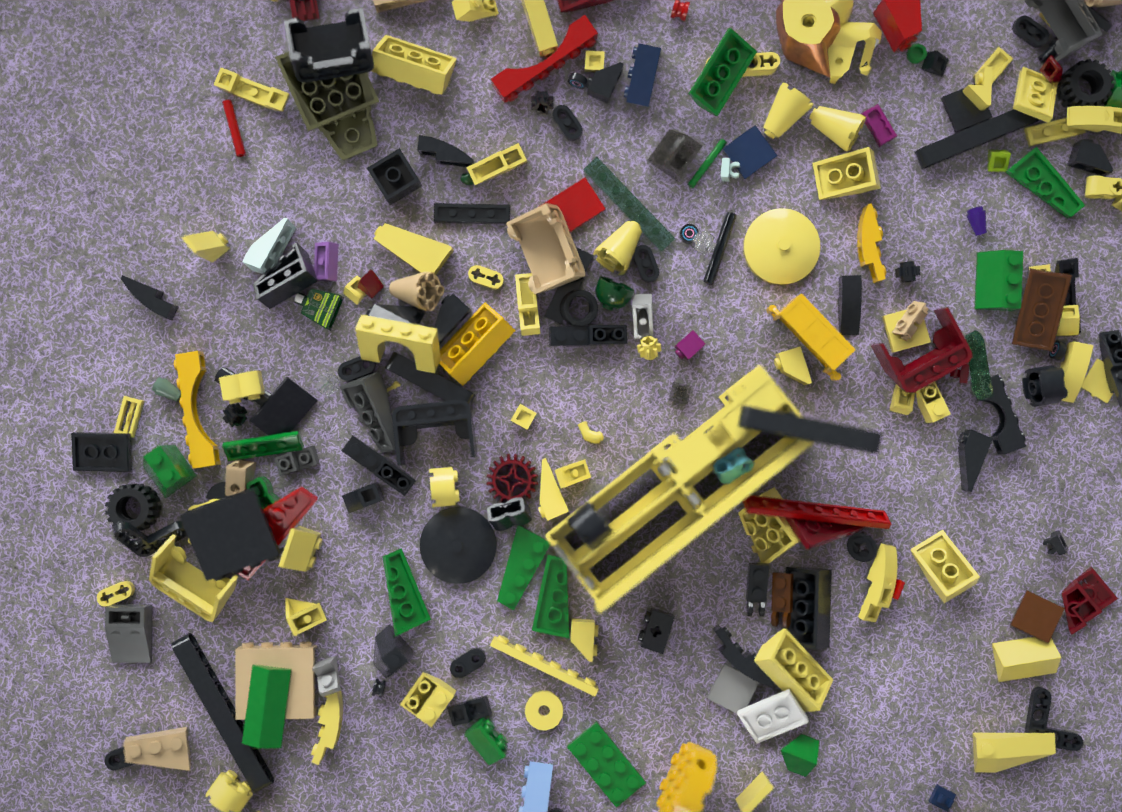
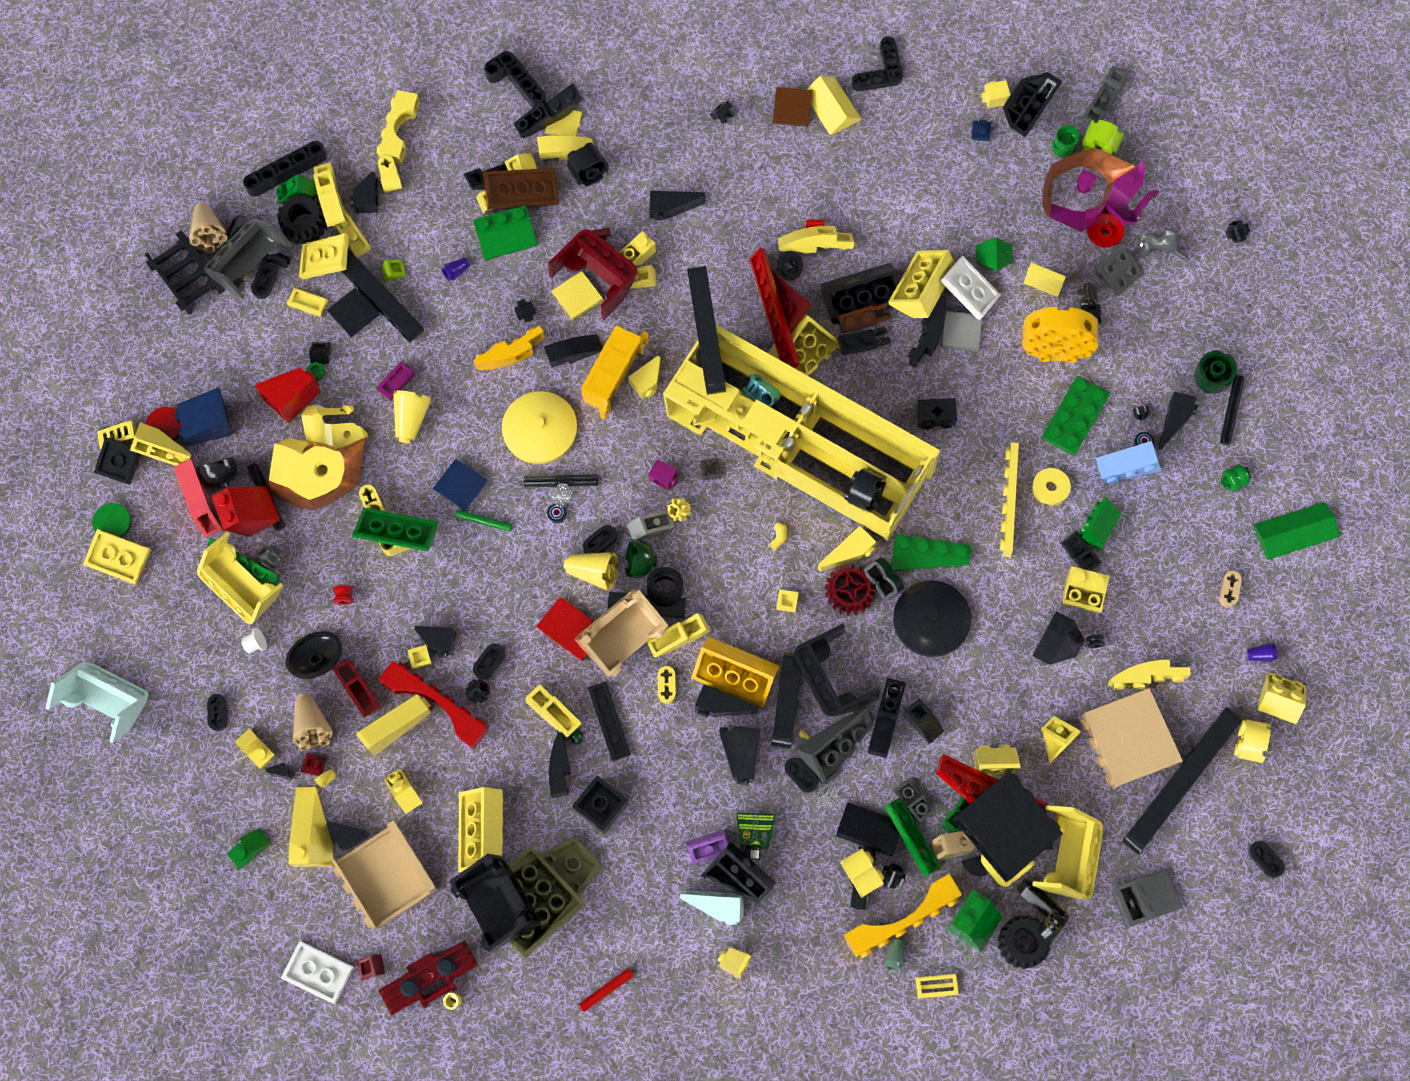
camera: 110 degrees left, 15 degrees down
(101, 451) = (982, 998): black tile -> none
(117, 597) = (1111, 934): light yellow beam -> none
(150, 298) = (809, 1007): black slope -> none
(160, 749) = (1241, 823): tan wedge -> none
(251, 91) = (561, 982): light yellow slope -> none
(266, 706) = (1157, 735): green slope -> none
(327, 676) = (1104, 690): light grey slope -> none
(353, 292) = (724, 805): light yellow slope -> none
(370, 284) = (714, 791): dark red slope -> none
(404, 596) = (999, 648): green wing -> none
(415, 250) = (666, 757): light yellow slope -> none
(418, 290) = (705, 739): tan cone -> none
(421, 340) = (760, 757): light yellow arch -> none
(443, 487) = (882, 647): light yellow brick -> none
(467, 662) = (1036, 571): black plate -> none
(552, 605) = (954, 512): green wing -> none
(572, 473) = (823, 537): light yellow slope -> none
(577, 80) = (444, 666): black tile -> none
(583, 636) = (968, 474): light yellow slope -> none
(587, 335) = (688, 568): black slope -> none
(628, 204) = (547, 578): clear green tile -> none
(642, 74) = (418, 605): dark blue wedge -> none
(675, 154) = (486, 549): clear smoke slope -> none
(726, 169) = (484, 499): light aqua tile -> none
(785, 111) = (411, 464): light yellow cone -> none
(847, 174) = (452, 393): light yellow slope -> none
(915, 313) = (573, 295): tan hinge -> none
(944, 566) = (779, 193): light yellow slope -> none
(979, 366) = (590, 221): clear green beam -> none
(981, 92) = (338, 301): light yellow slope -> none
(1006, 750) = (918, 95): light yellow wedge -> none
(1008, 435) = (641, 180): black arch -> none
(1045, 182) = (400, 225): green wing -> none
(1052, 70) = (296, 251): dark red slope -> none
(1058, 350) = (550, 163): black tile -> none
(1085, 600) = (761, 73): dark red slope -> none

